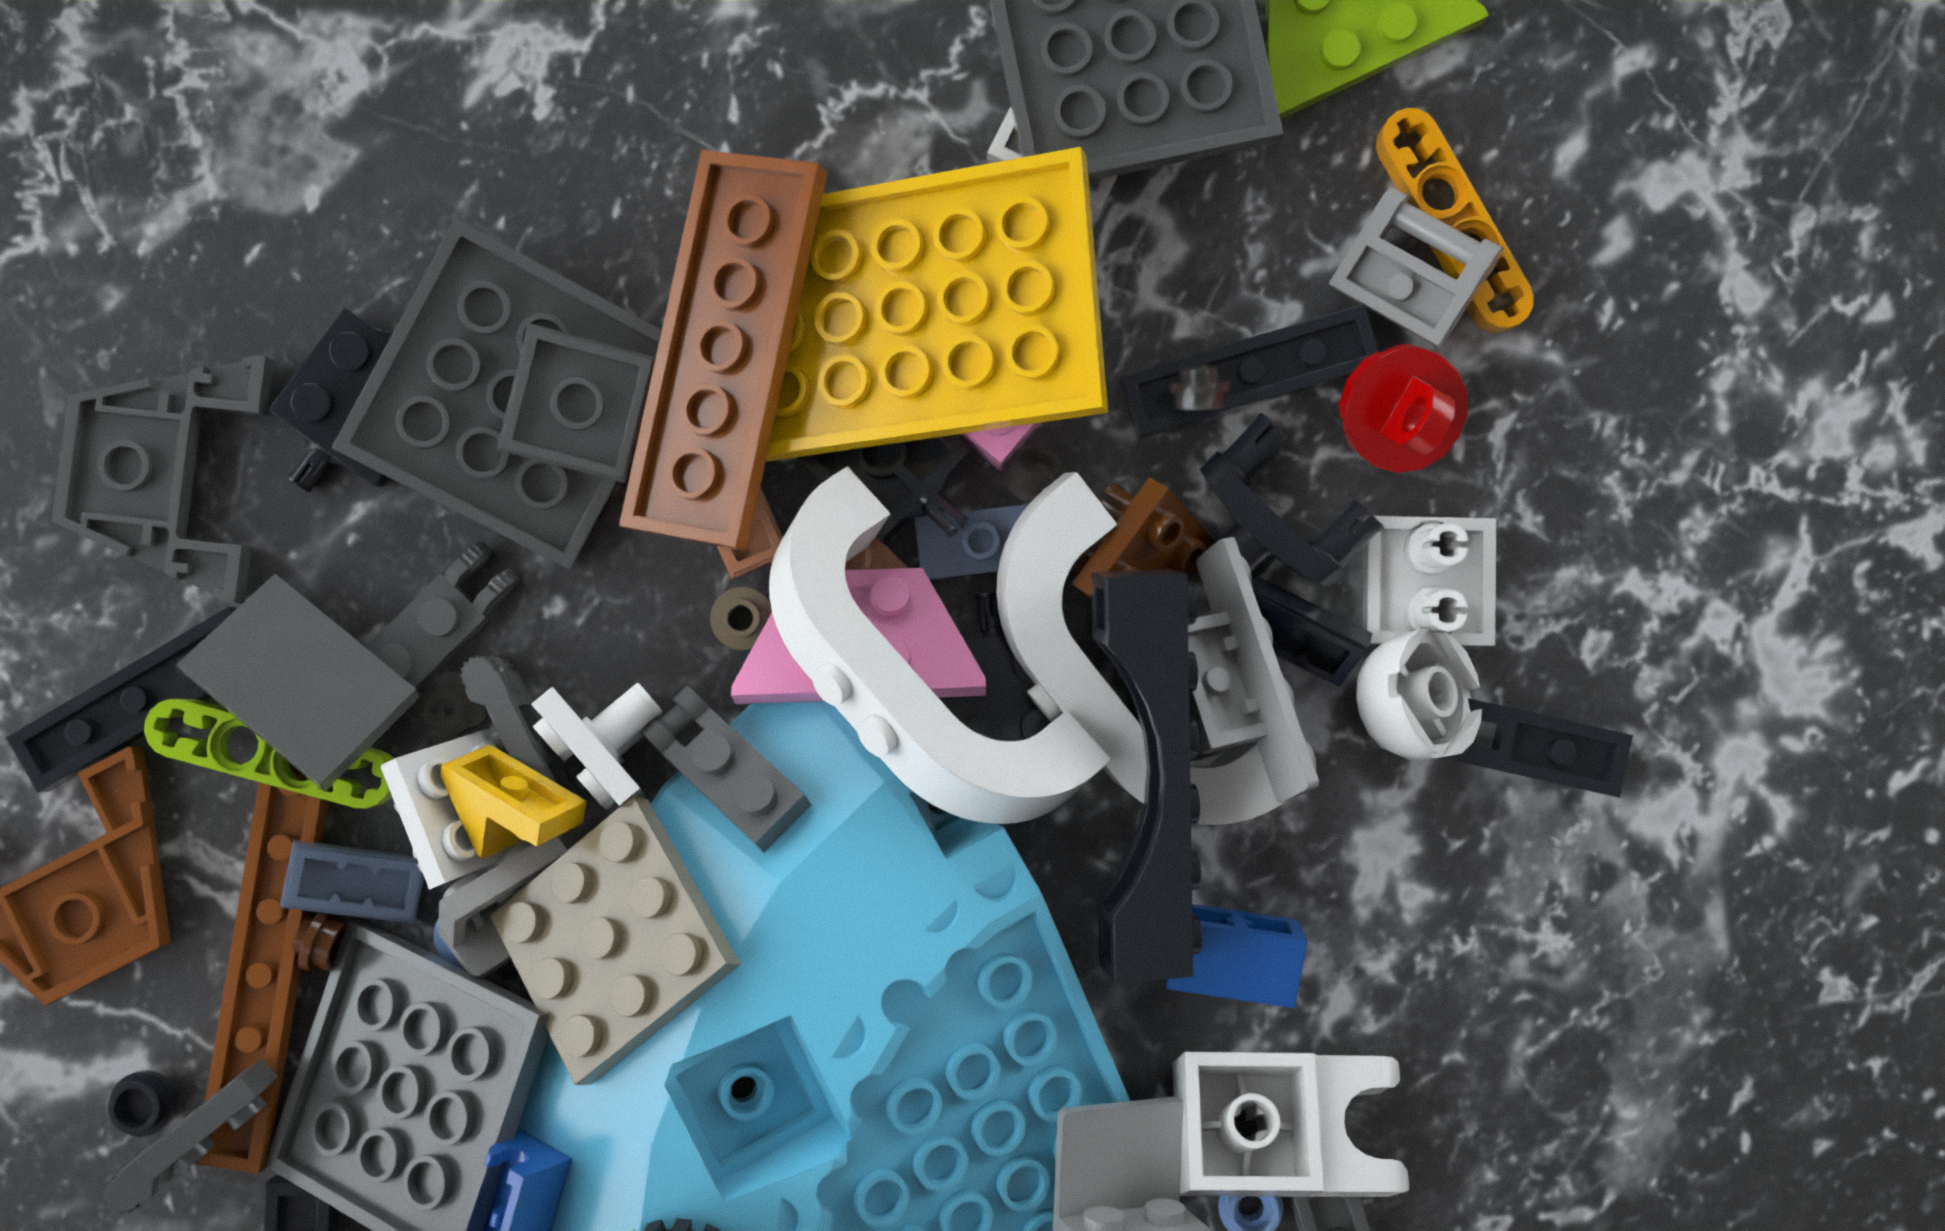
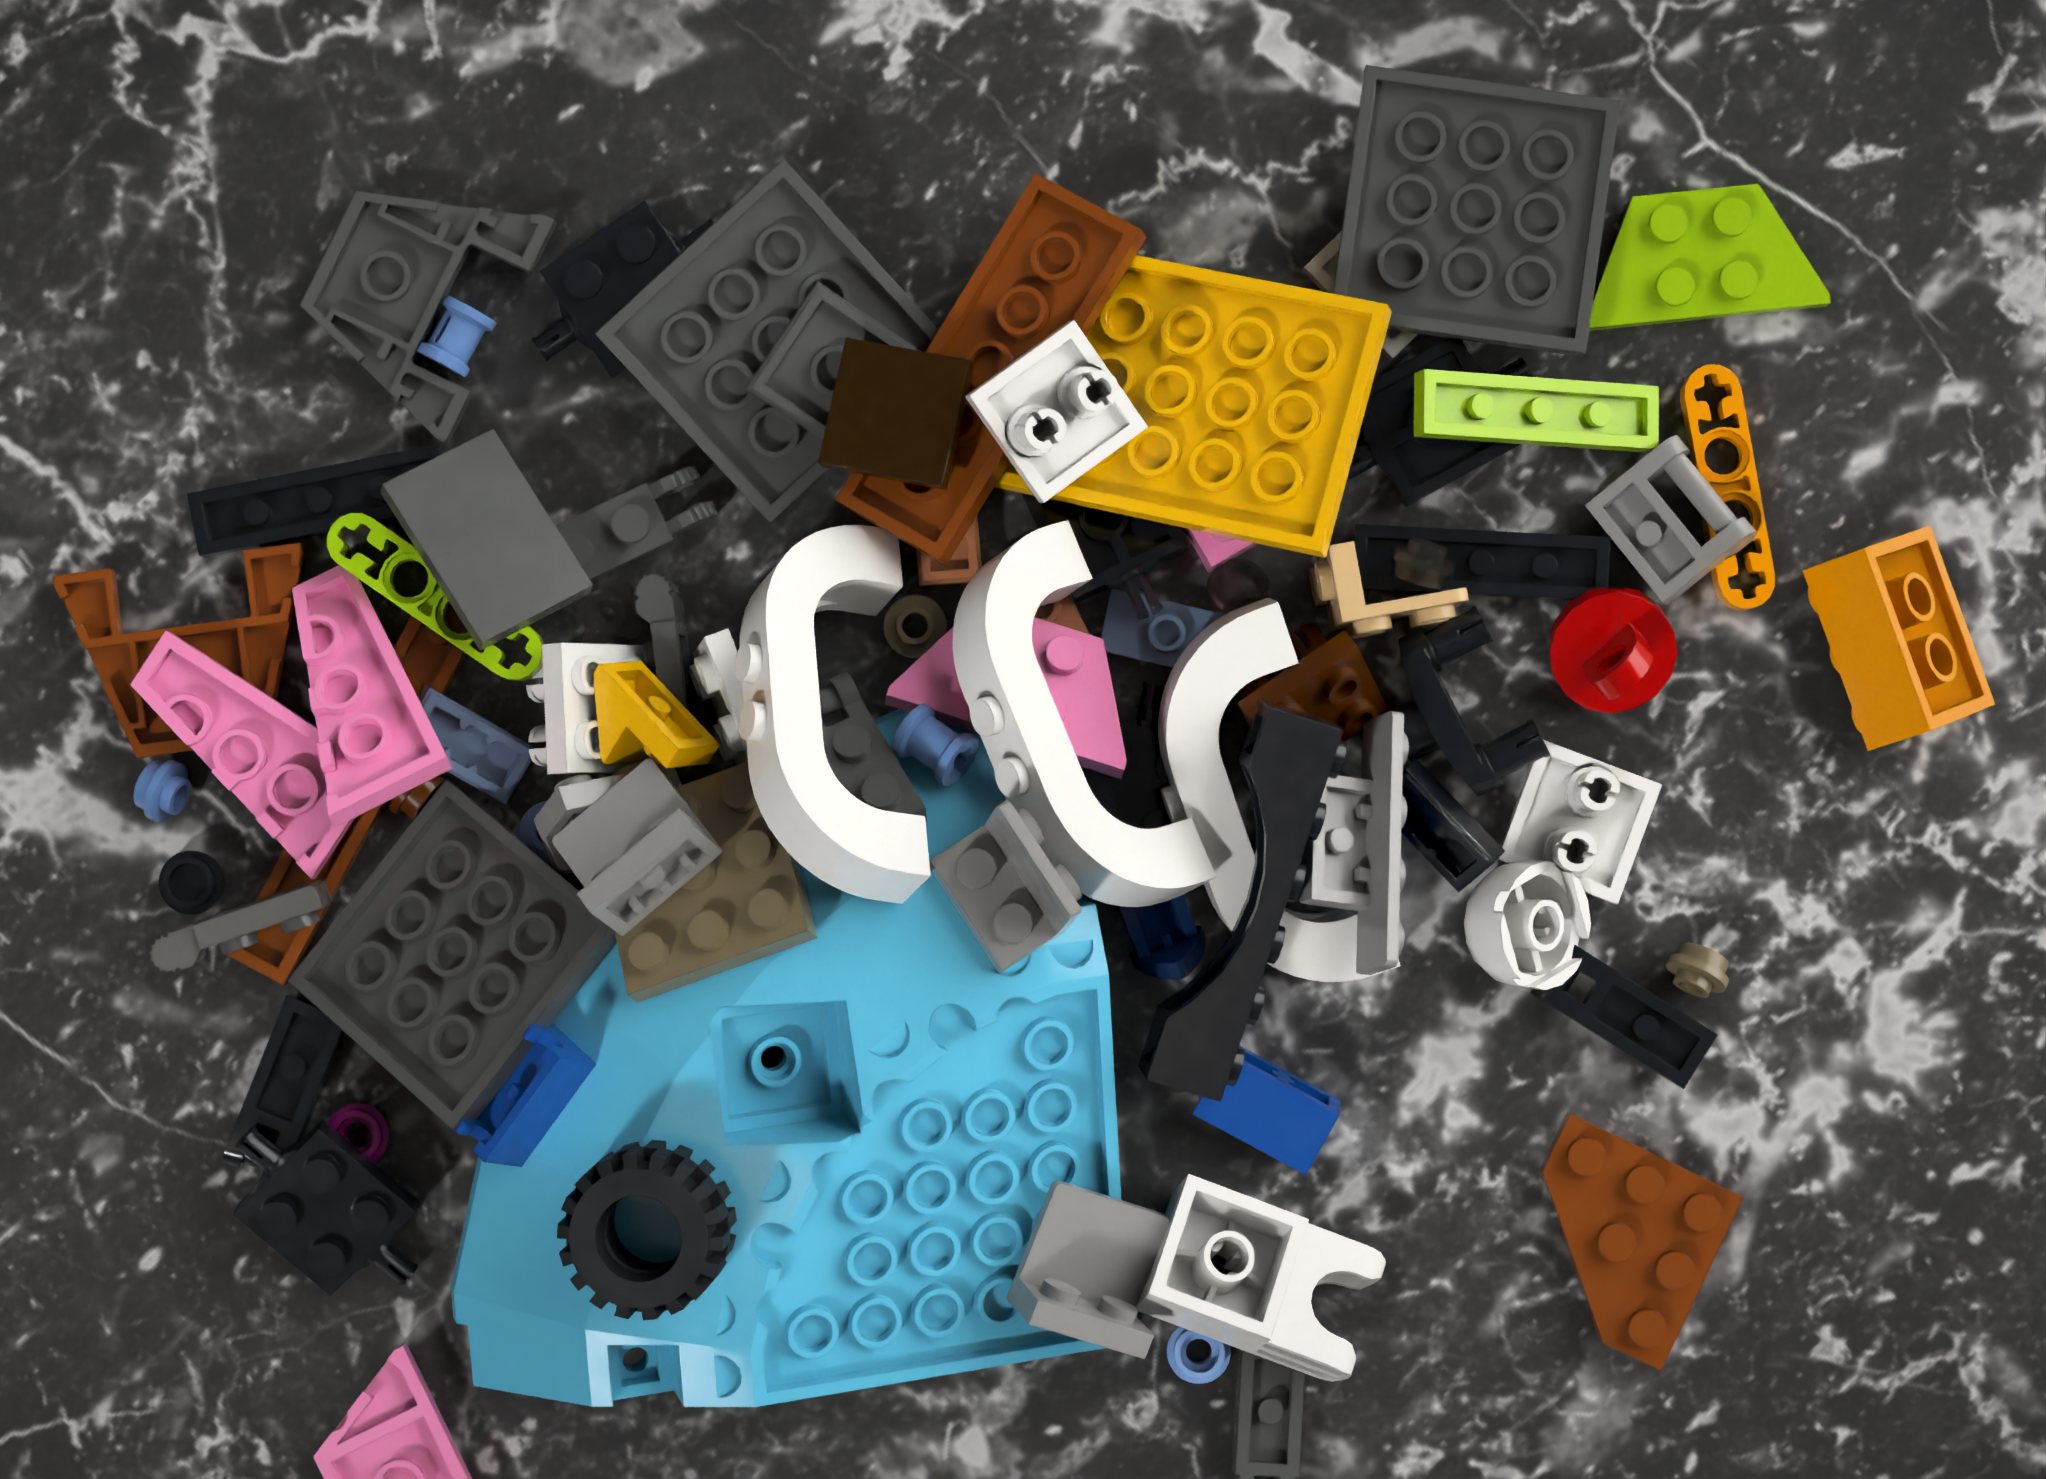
camera: 20 degrees right, 0 degrees up
(81, 1026) = (162, 789): none -> medium blue plate
(173, 965) = (248, 743): none -> bright pink wing
(213, 498) = (456, 336): none -> medium blue bush
(232, 880) = (364, 706): none -> bright pink wing
(532, 939) = (635, 847): none -> light grey bracket
(644, 421) = (896, 413): none -> dark brown tile
(670, 833) = (800, 798): none -> white arch
(794, 728) = (935, 745): none -> medium blue bush
(797, 363) = (1056, 411): none -> white plate
(910, 846) = (1008, 886): none -> light grey bracket
(1083, 832) = (1164, 938): none -> dark blue tile
(1130, 439) = (1339, 587): none -> tan bracket
(1163, 251) = (1417, 463): none -> black plate
(1252, 208) = (1535, 411): none -> lime plate
(1591, 680) = (1698, 970): none -> dark tan plate
(1619, 948) = (1634, 1234): none -> dark orange plate
(1665, 306) = (1898, 638): none -> light orange slope

